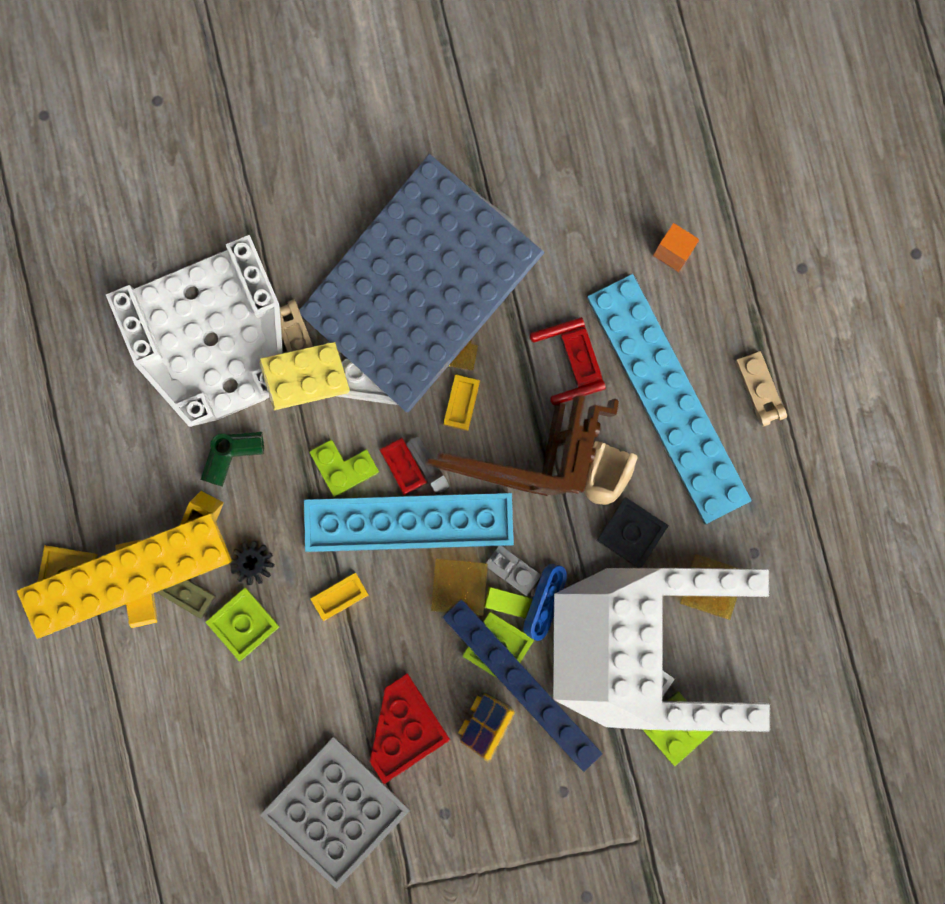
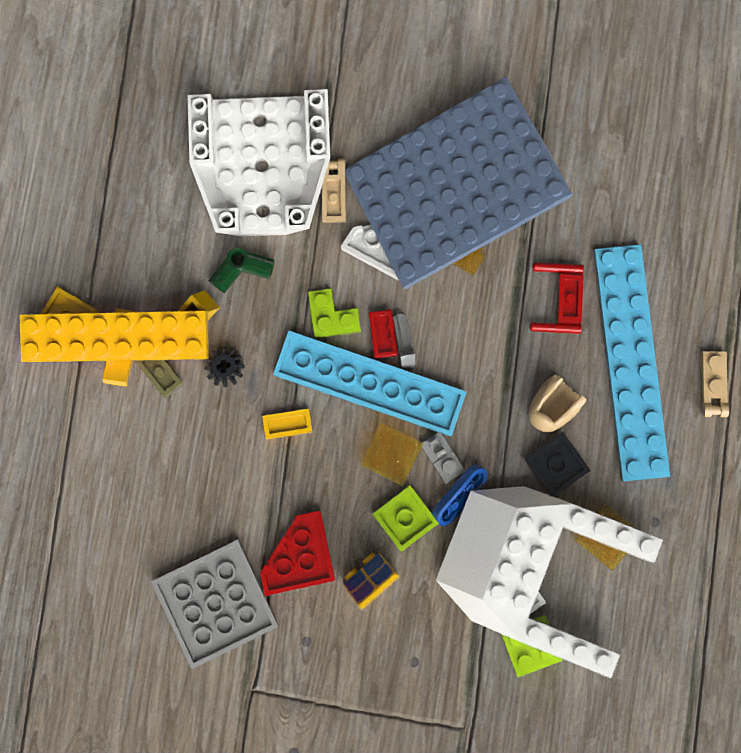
camera: 25 degrees right, 0 degrees up
(242, 624) = (197, 416): lime plate -> none
(304, 376) = (328, 225): light yellow plate -> none
(461, 402) = (453, 299): yellow tile -> none
(507, 602) = (427, 483): lime piece -> none
(522, 685) = (413, 557): dark blue plate -> none
(575, 460) = (530, 385): reddish brown piece -> none
(676, 247) = (687, 235): orange panel -> none

